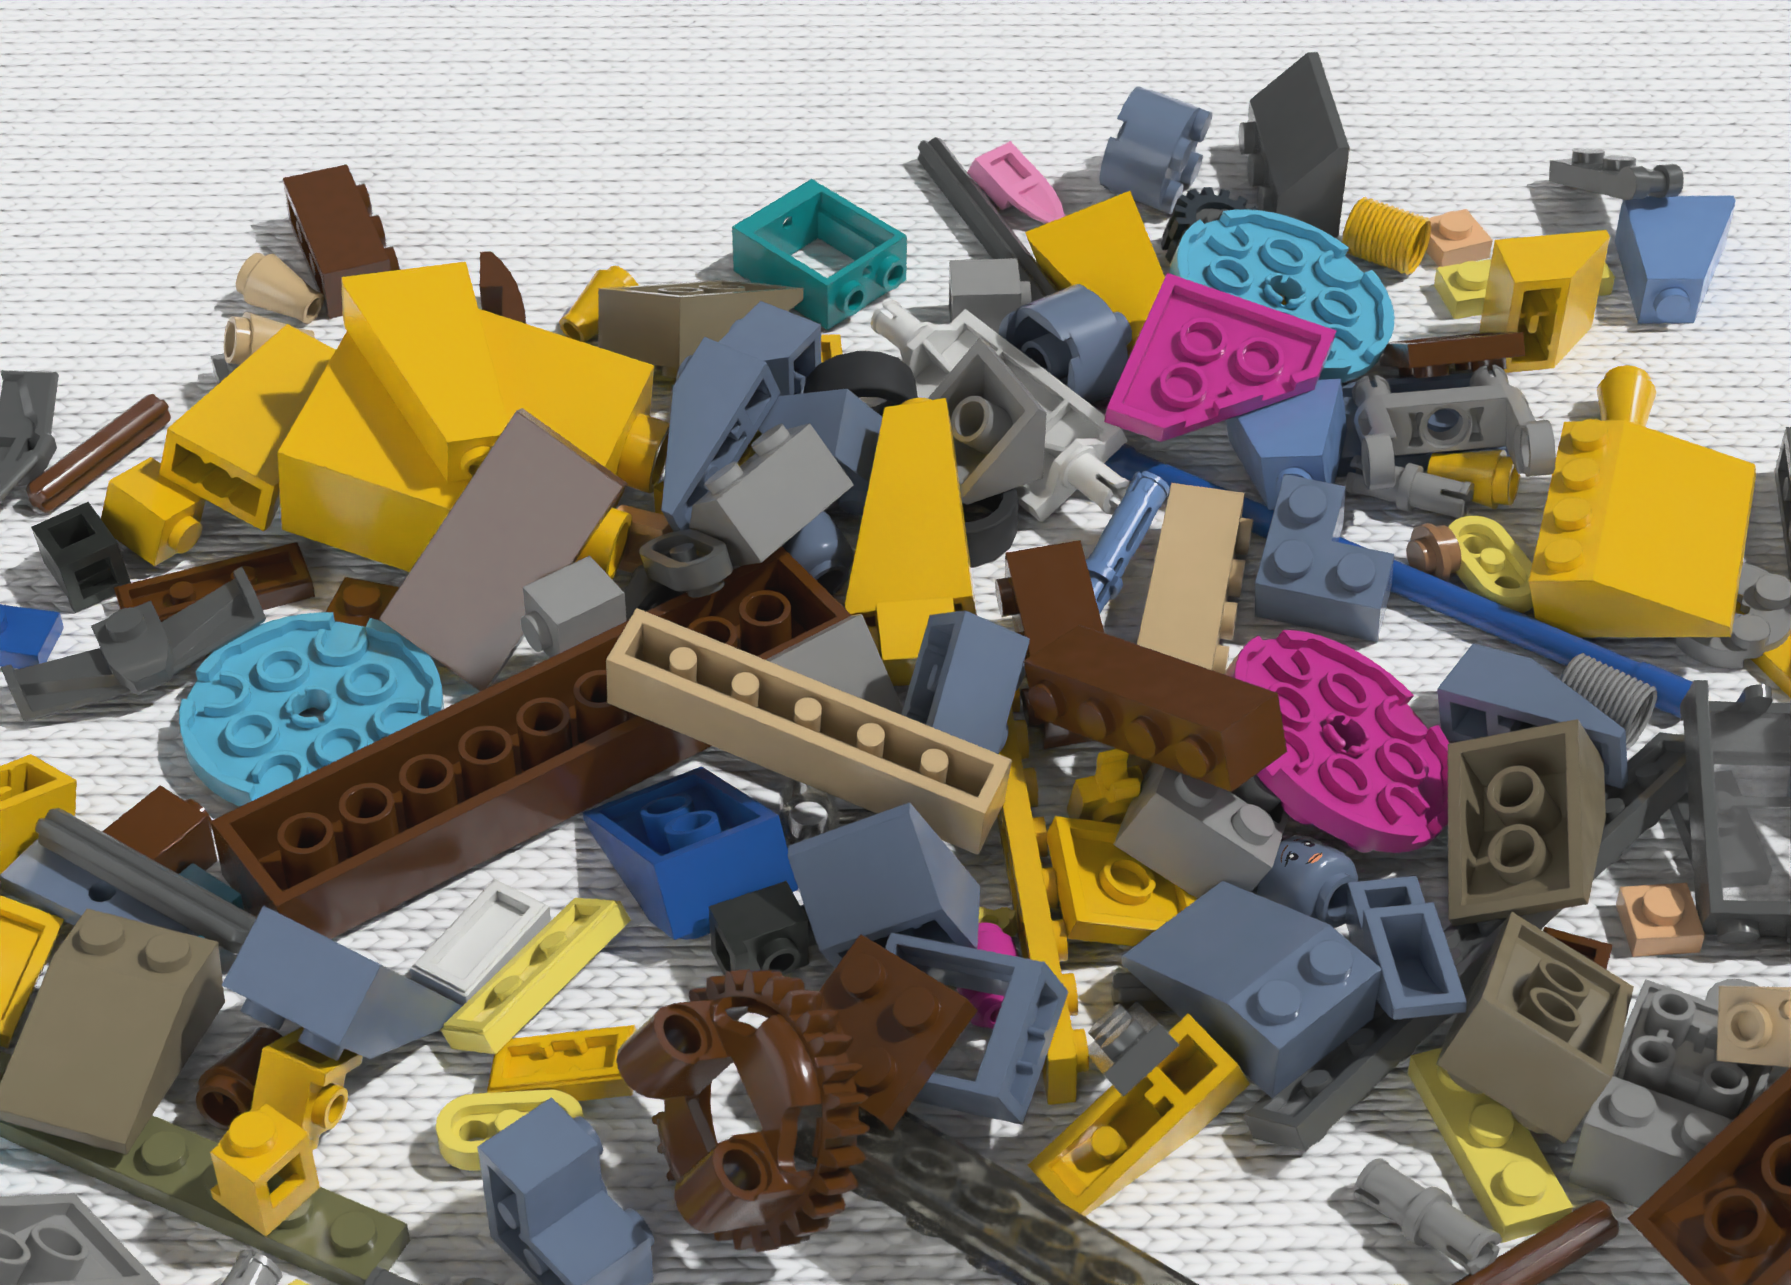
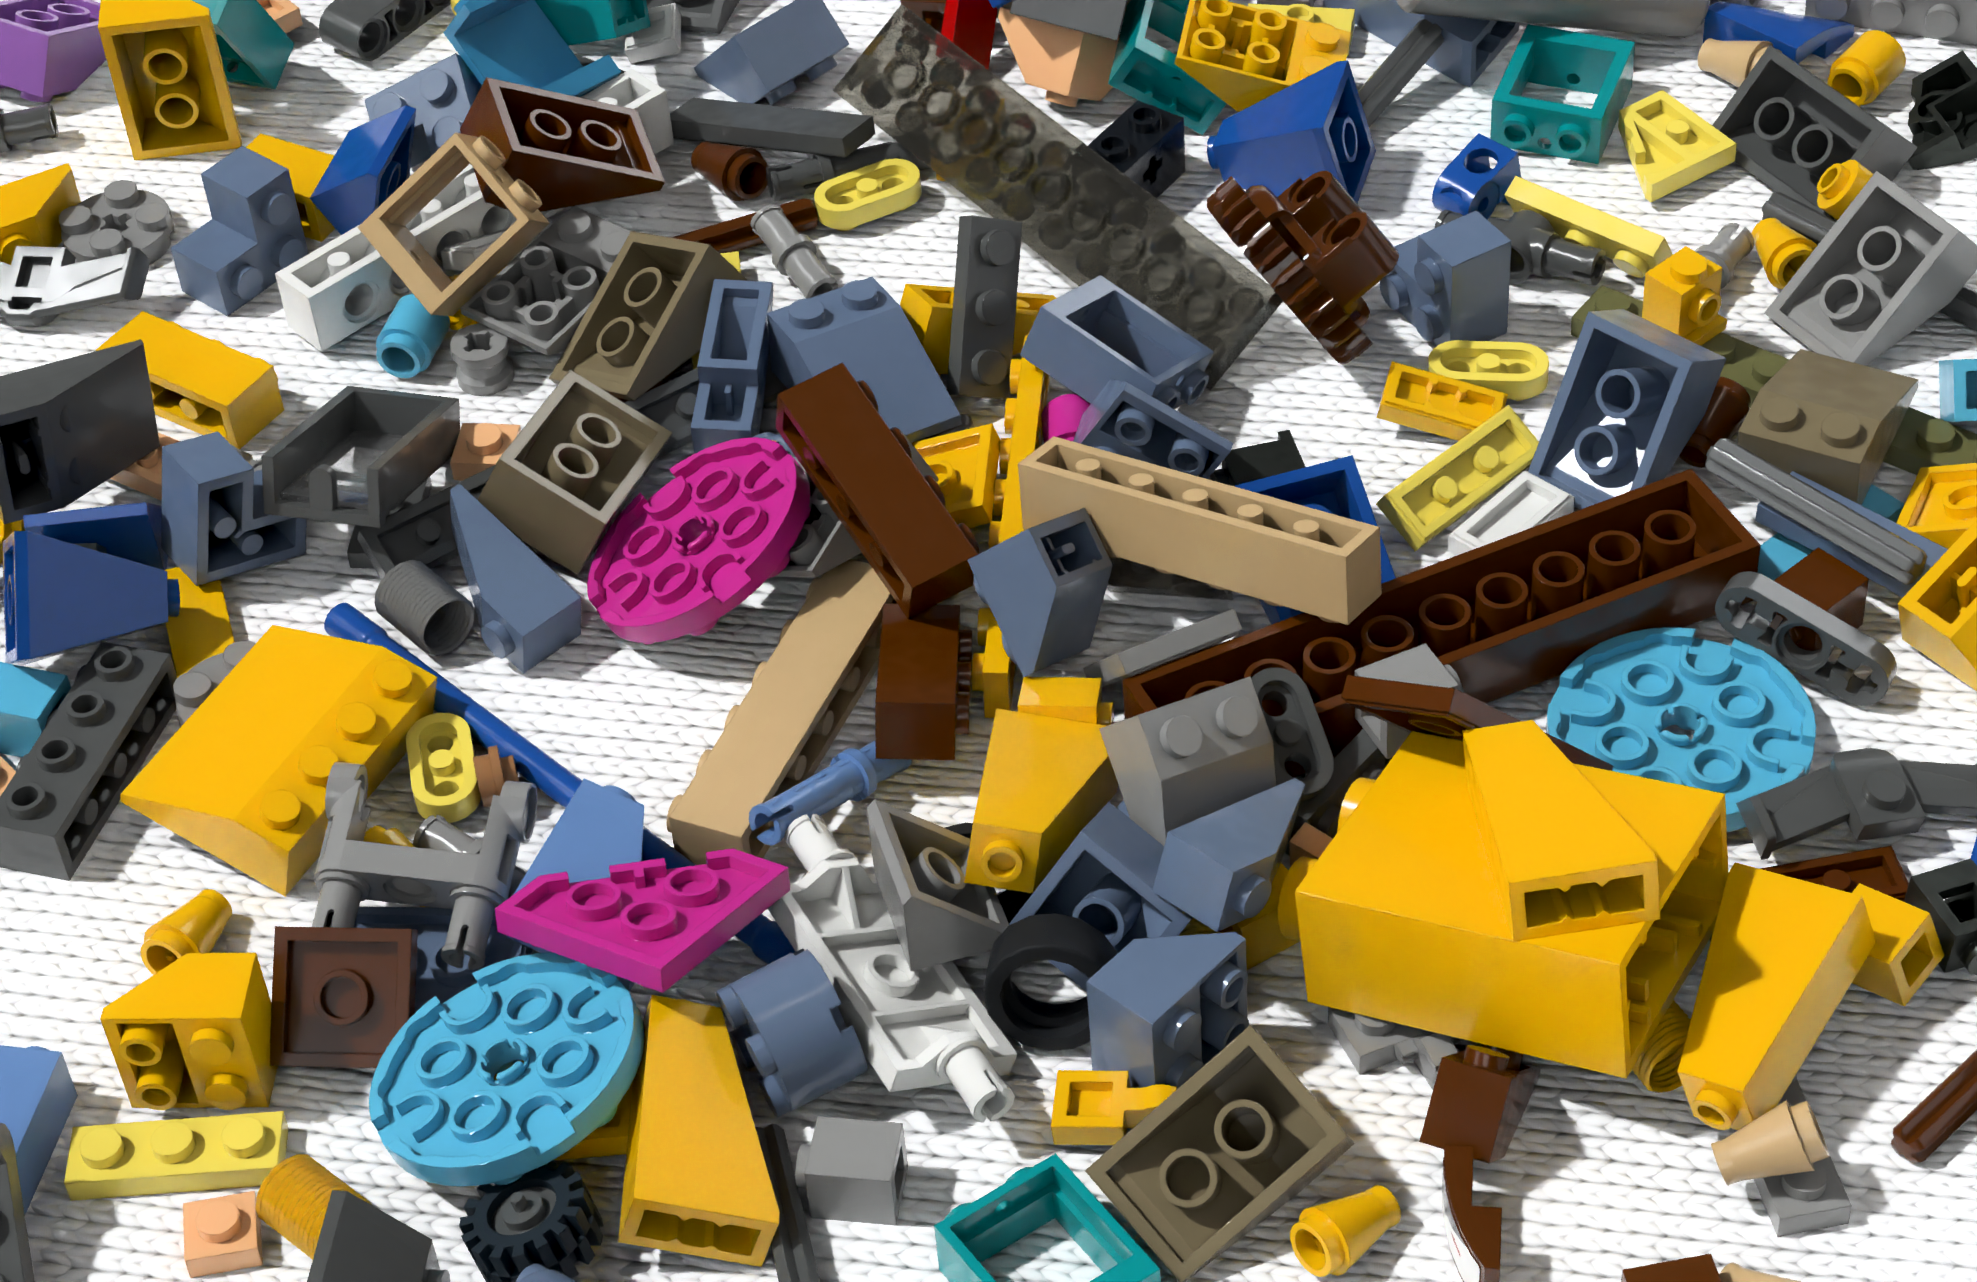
camera: 165 degrees left, 0 degrees up
(211, 778) = (1814, 665): none -> dark grey beam
(897, 1022) = (1184, 335): reddish brown plate -> none
(1310, 575) = (630, 734): sand blue brick -> none

